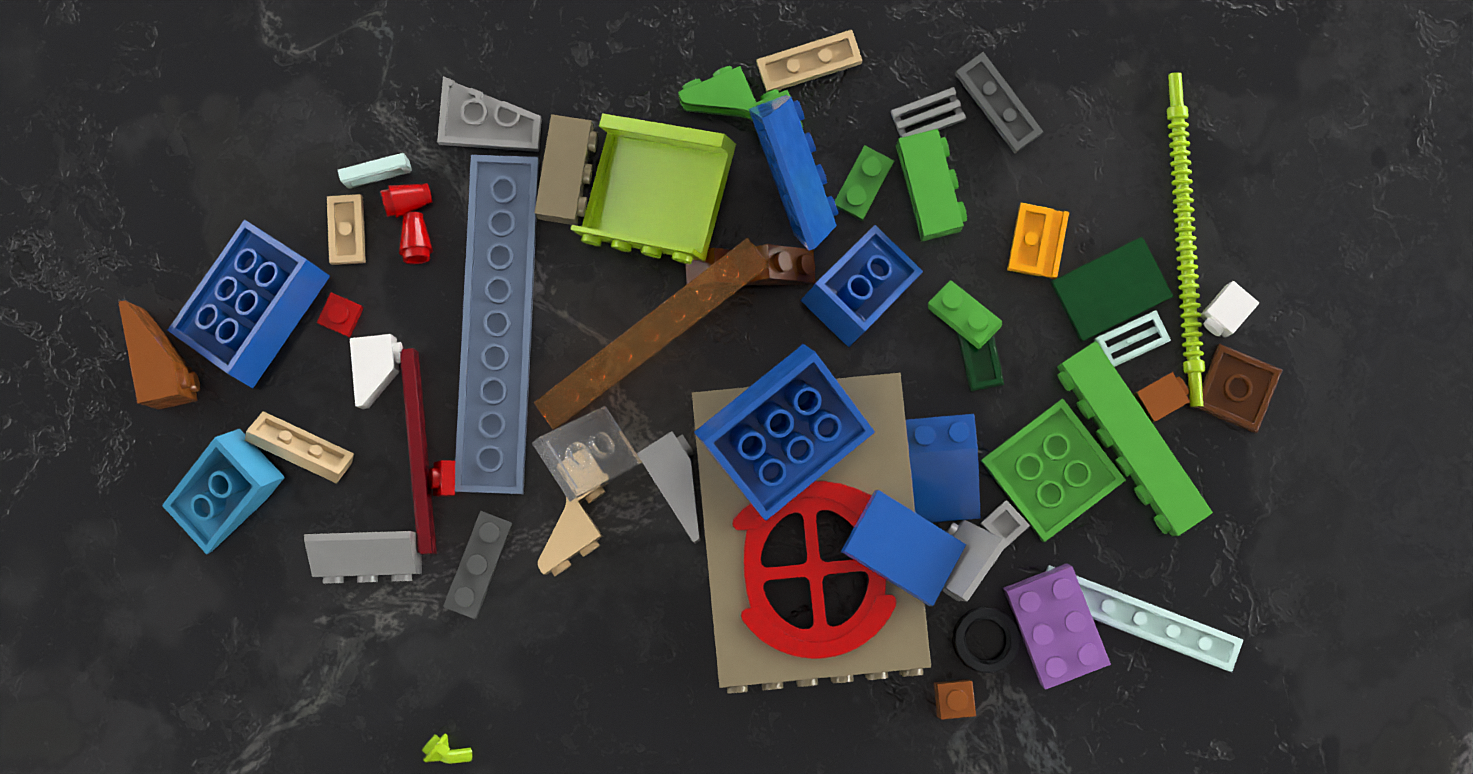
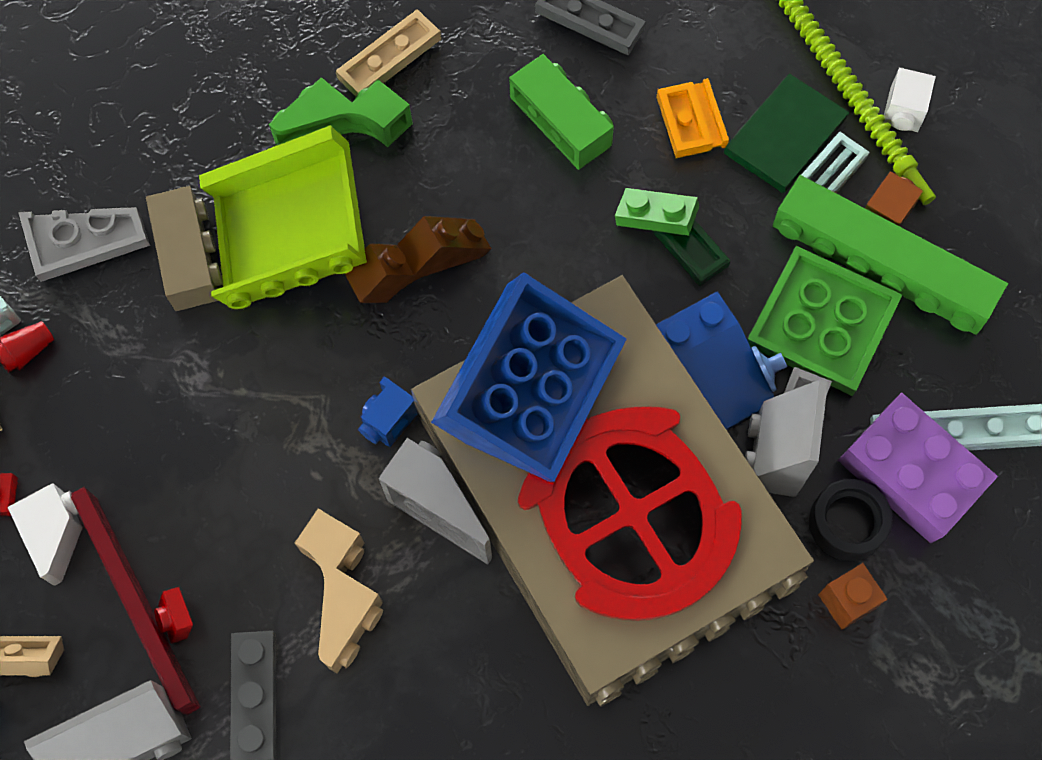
camera: 25 degrees left, 15 degrees down
(414, 241) = (47, 382): red cone -> none
(497, 325) = (174, 438): sand blue plate -> none
(586, 453) = (323, 510): clear tile -> none
(651, 333) = (340, 361): clear orange tile -> none
(668, 390) = (387, 414): none -> blue brick
(794, 169) = (414, 138): blue slope -> none
(861, 286) = (538, 230): blue slope -> none
(863, 183) = (494, 140): bright green plate -> none
(903, 548) = (718, 444): blue tile -> none
(954, 105) = (536, 34): light grey tile -> none
(986, 490) = (770, 366): none -> medium blue plant
(1238, 388) = (958, 168): reddish brown tile -> none

